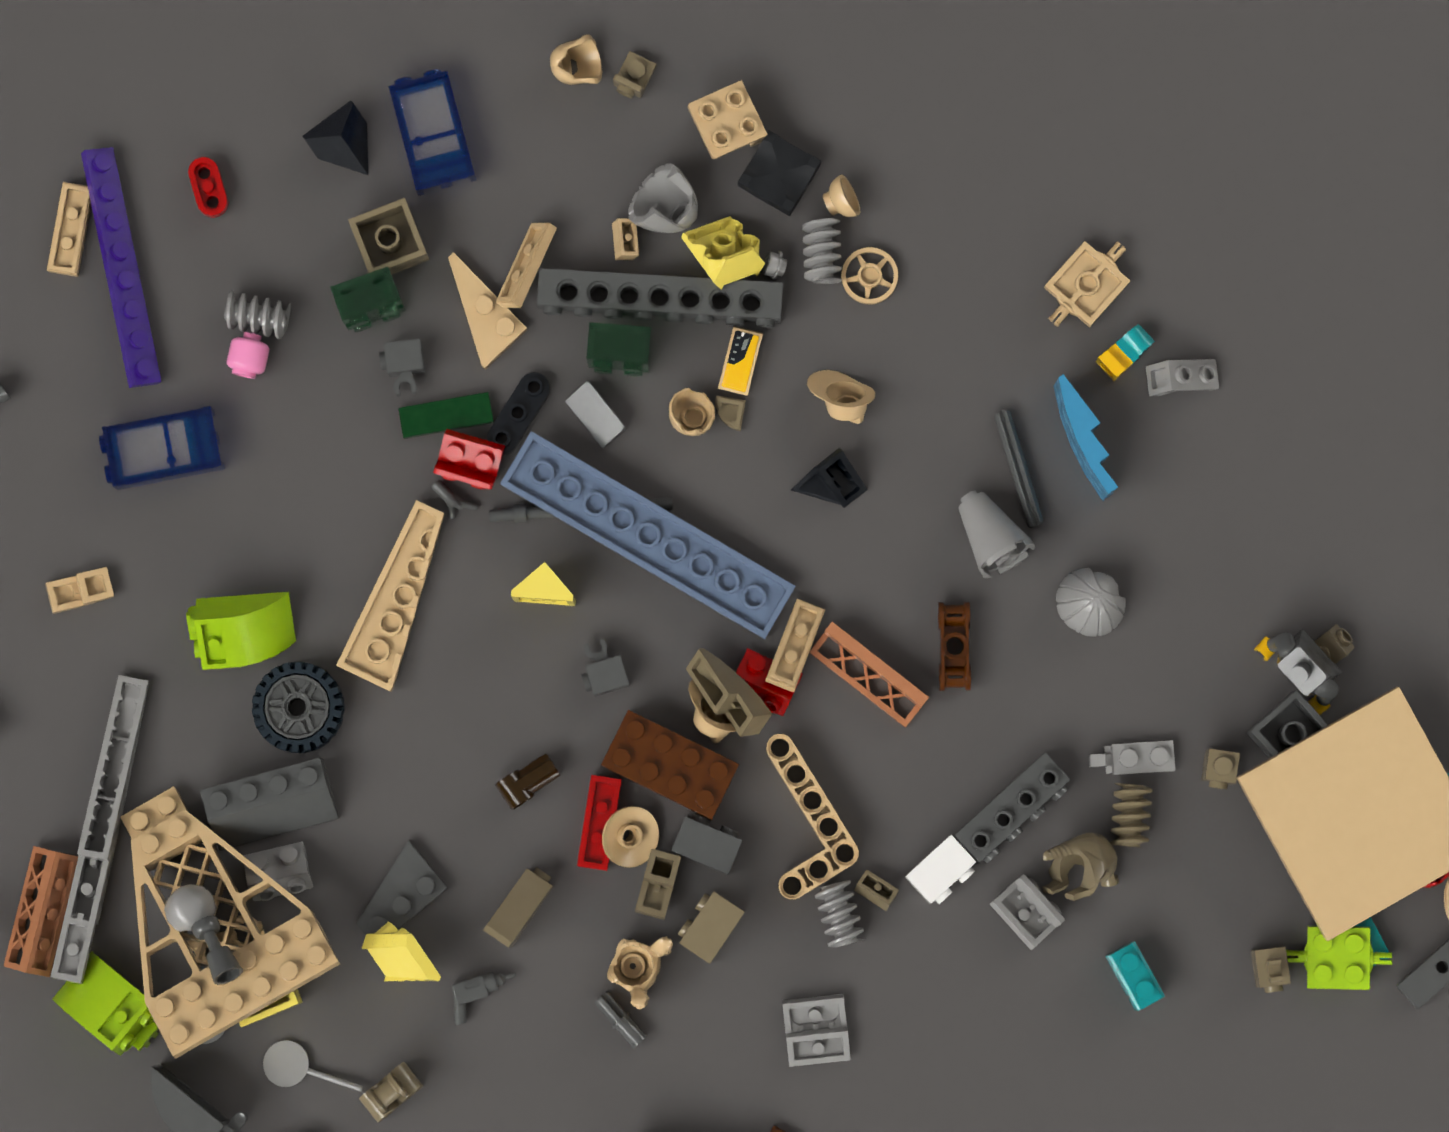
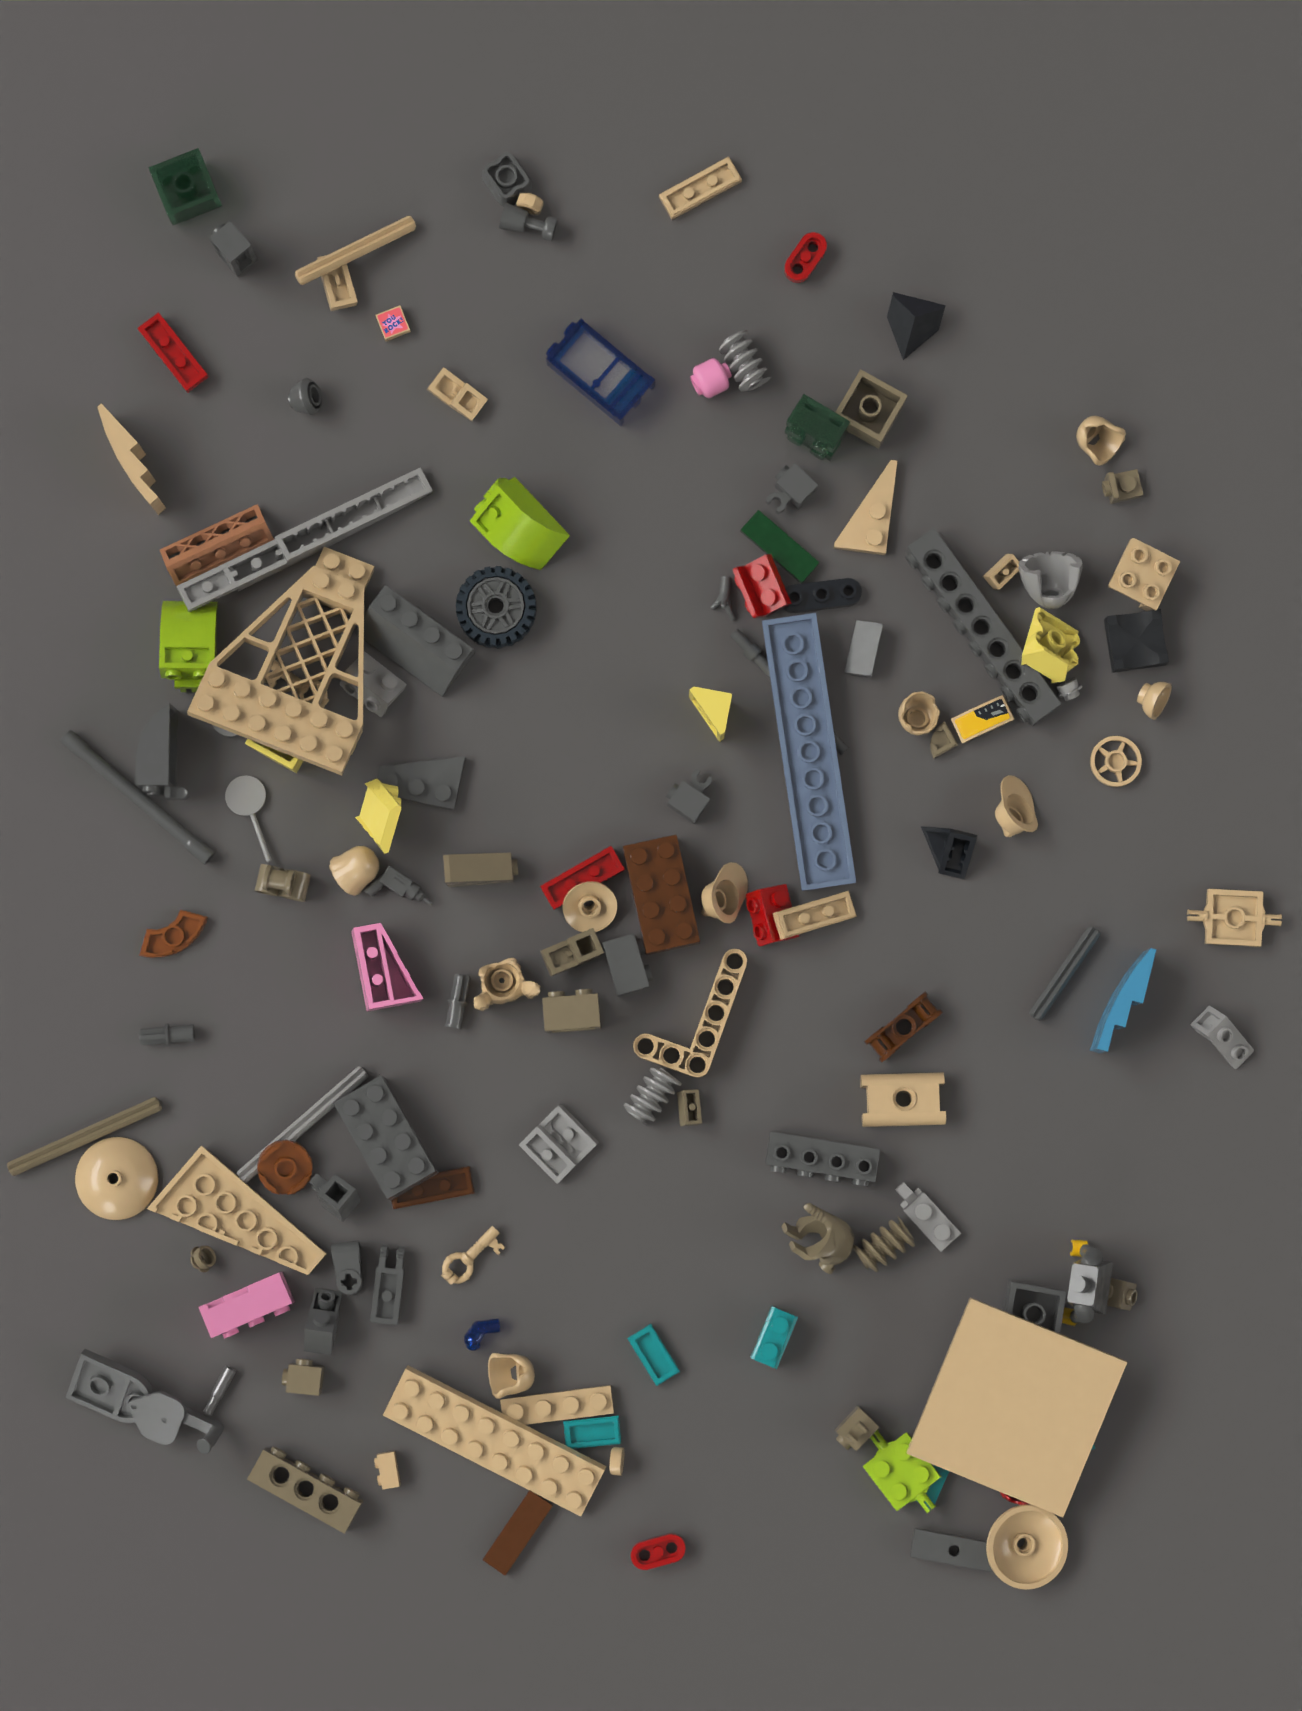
camera: 50 degrees right, 0 degrees up
(121, 267) = (701, 243): dark purple plate -> none
(188, 906) = (298, 642): light grey hair -> none
(220, 959) = (279, 690): dark grey piece -> none
(386, 621) = (604, 619): tan wing -> none
(430, 1018) = (355, 869): none -> tan hair
(431, 130) = (969, 377): clear blue door -> none
(521, 785) = (564, 803): dark brown piece -> none
(526, 265) = (928, 517): tan tile -> none
(539, 1065) = (381, 971): none -> bright pink wedge
(619, 348) = (922, 627): clear green brick -> none
(728, 693) = (743, 895): dark tan slope -> none
(821, 251) = (1105, 713): light grey piece -> none
(876, 665) = (846, 982): nougat fence -> none
(940, 870) = (740, 1142): white piece -> none
(992, 535) = (1003, 991): light grey cone -> none
(1020, 674) = (923, 1094): none -> tan piece
(1027, 911) = (759, 1225): light grey bracket -> none
(1066, 1094) = (653, 1354): none -> teal tile
(1090, 602) = (1011, 1098): light grey hair -> none
(1125, 352) = (1207, 982): leg -> none
(1220, 768) = (968, 1282): dark tan brick -> none

